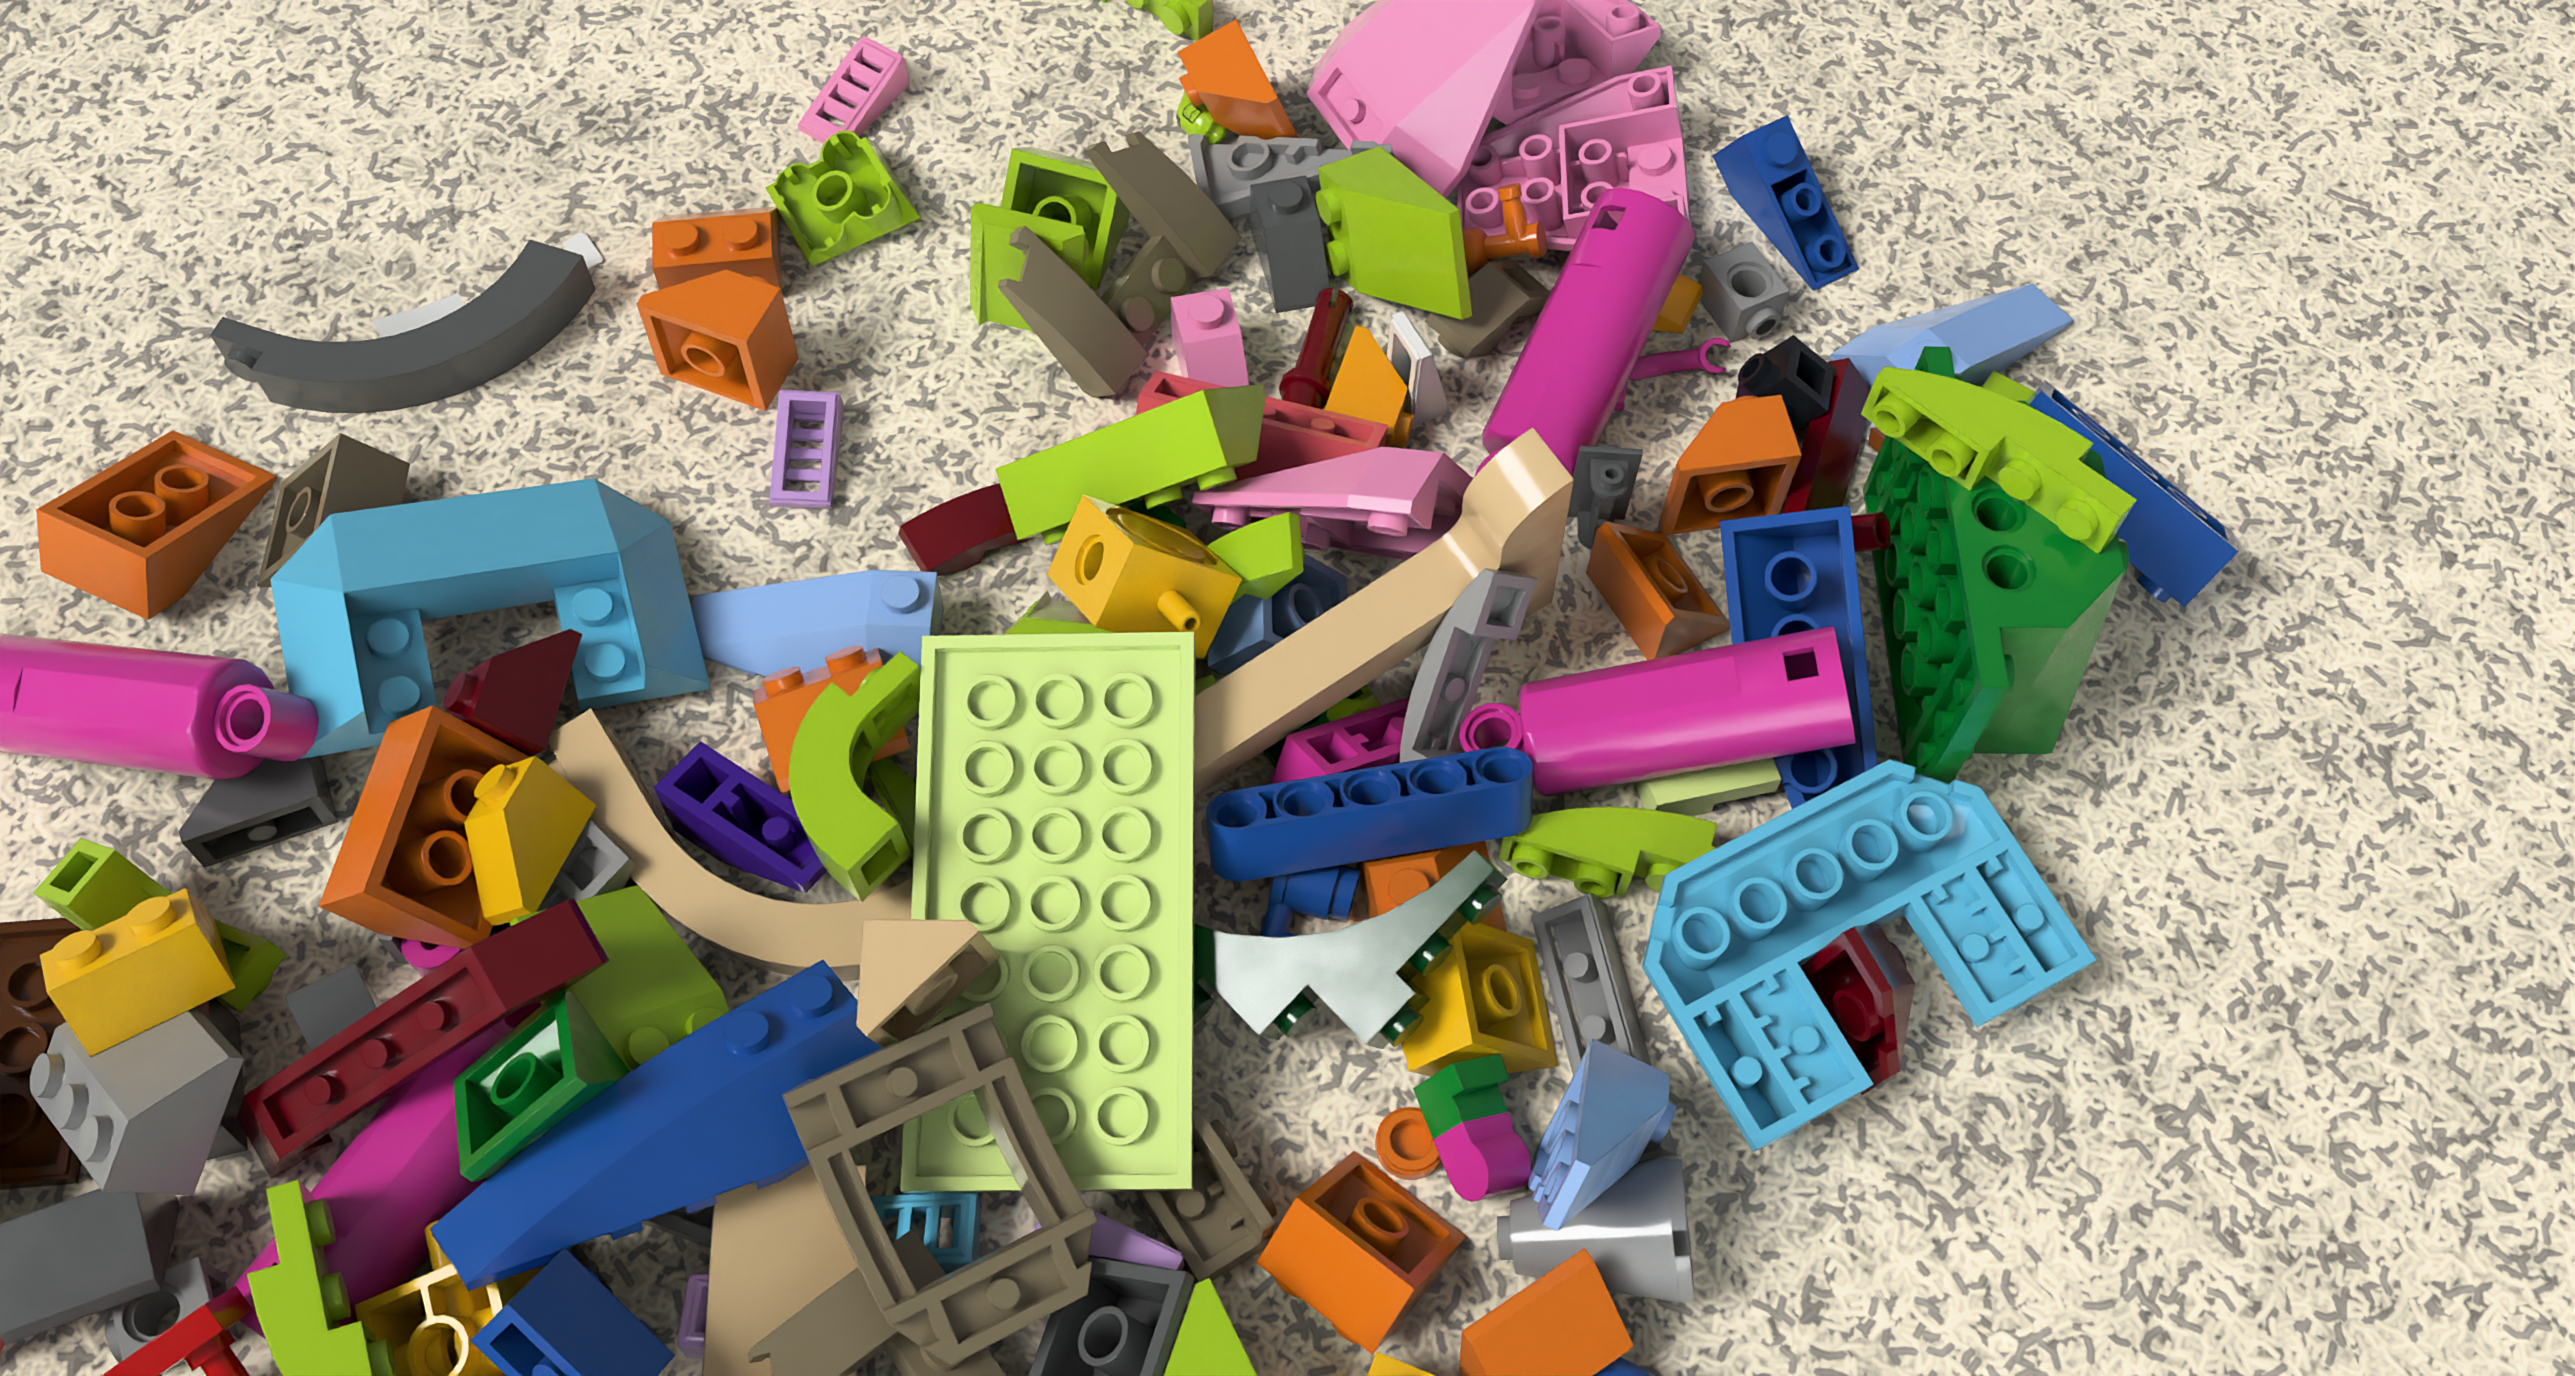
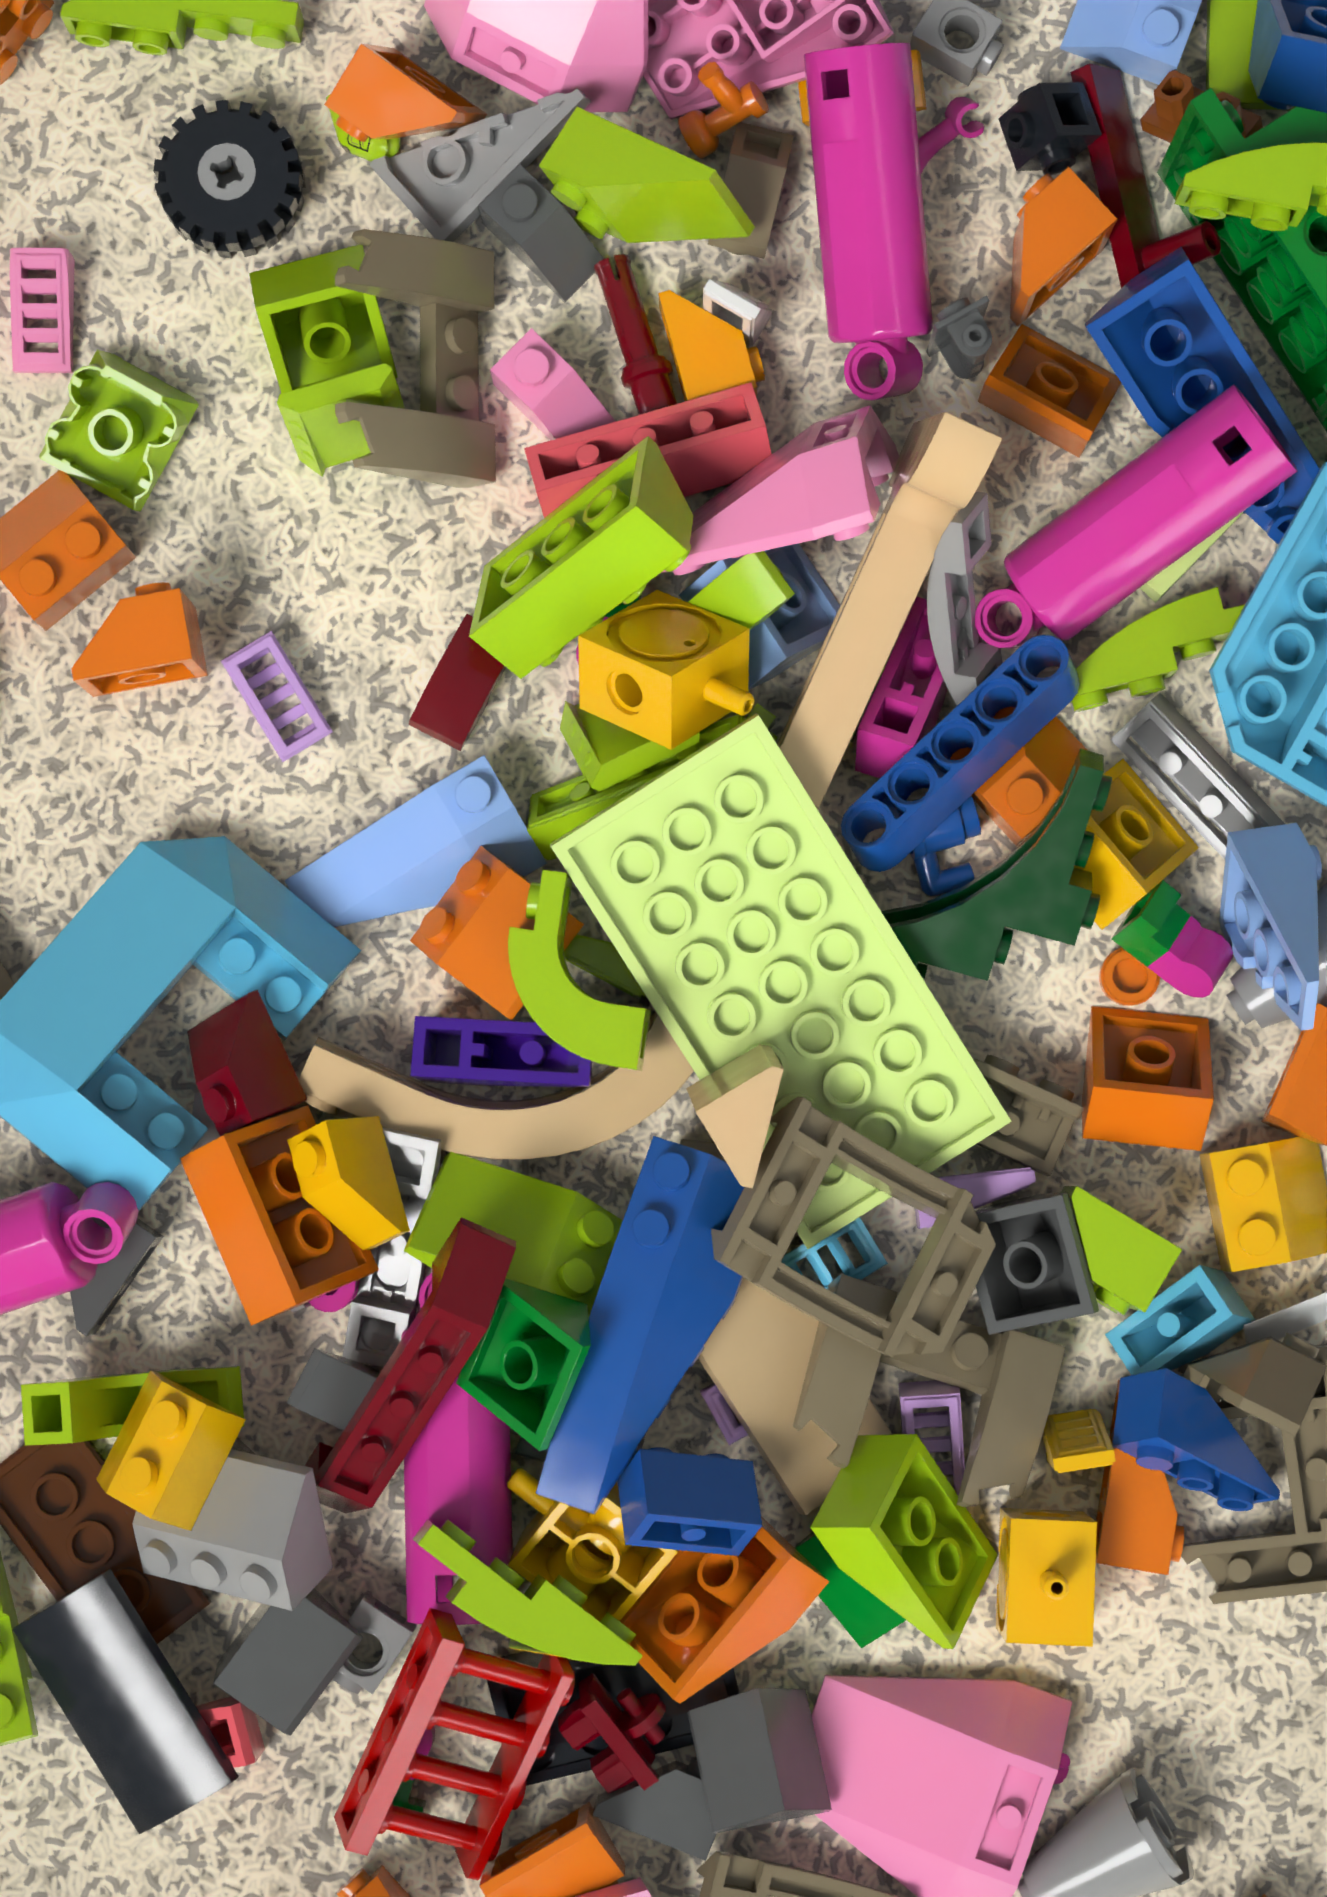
camera: 25 degrees left, 25 degrees up
(1069, 85) = (242, 205): none -> black wheel

